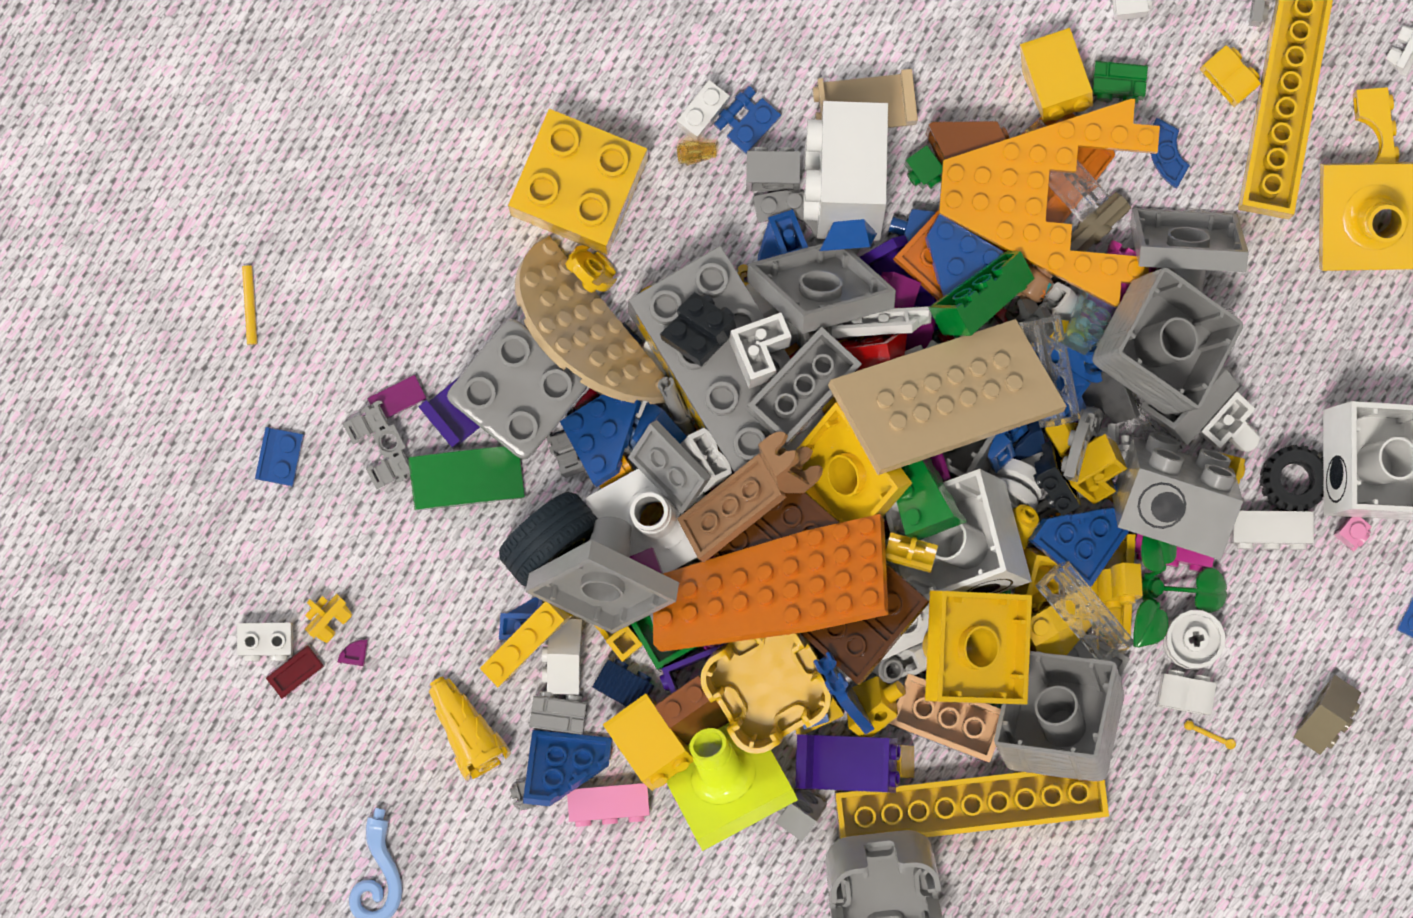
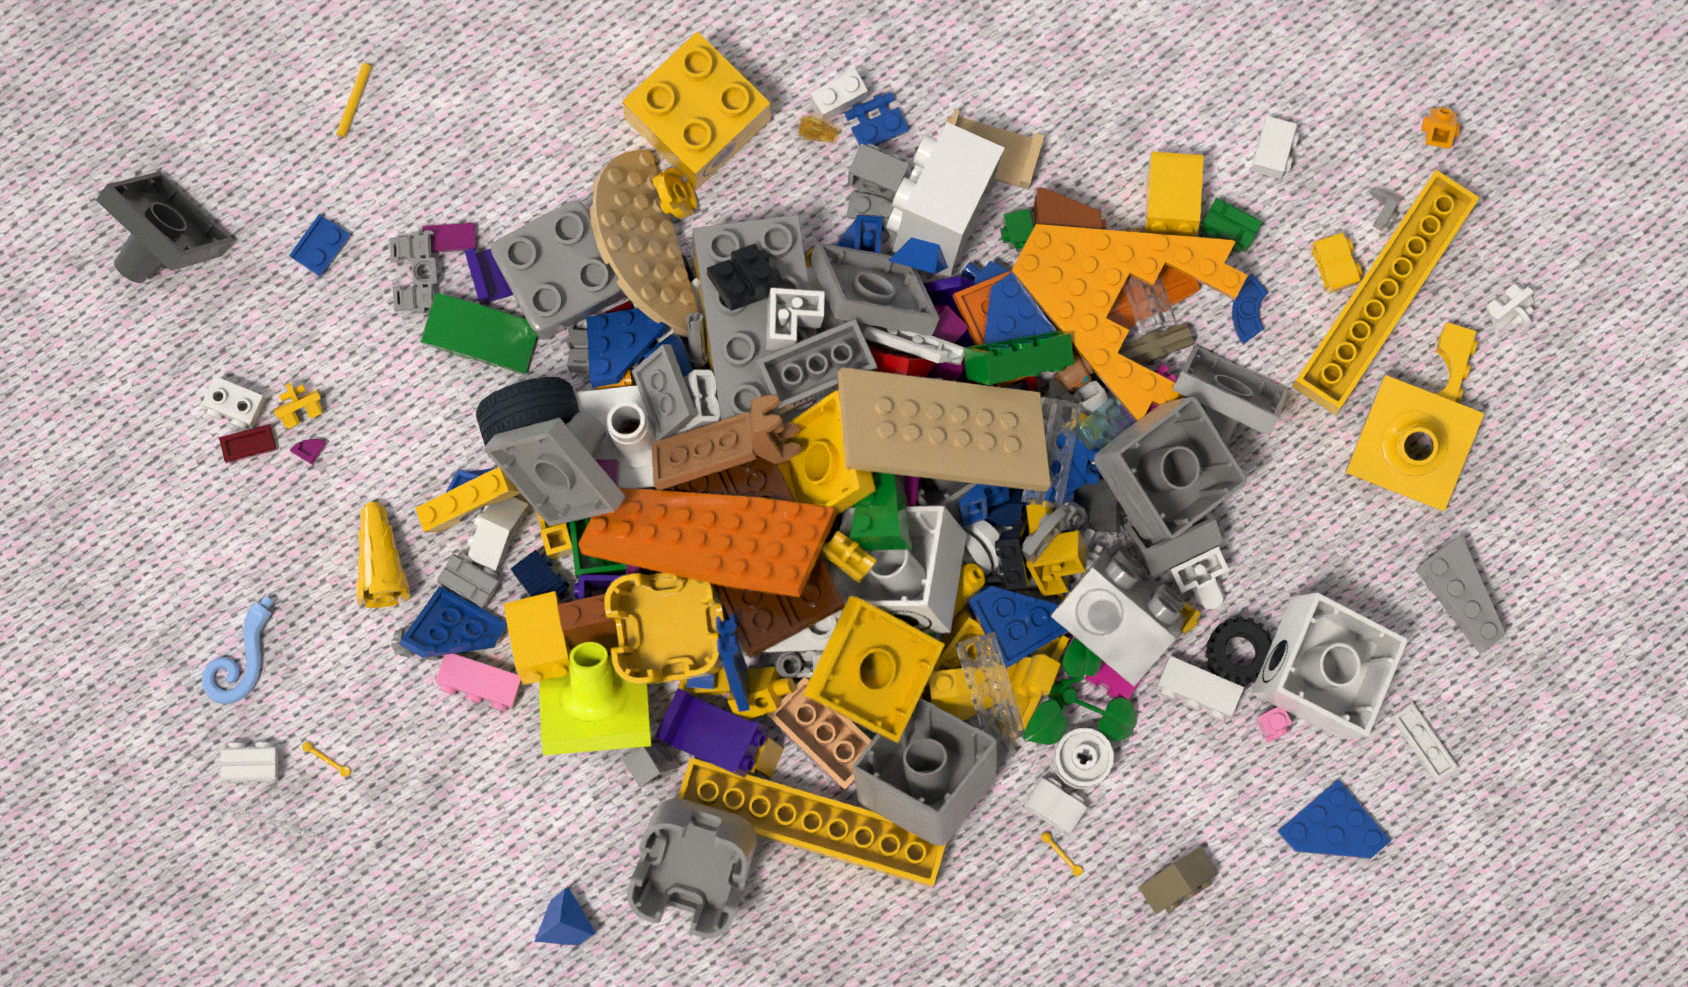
camera: 20 degrees right, 5 degrees down
(127, 504) = (162, 226): none -> dark grey piece

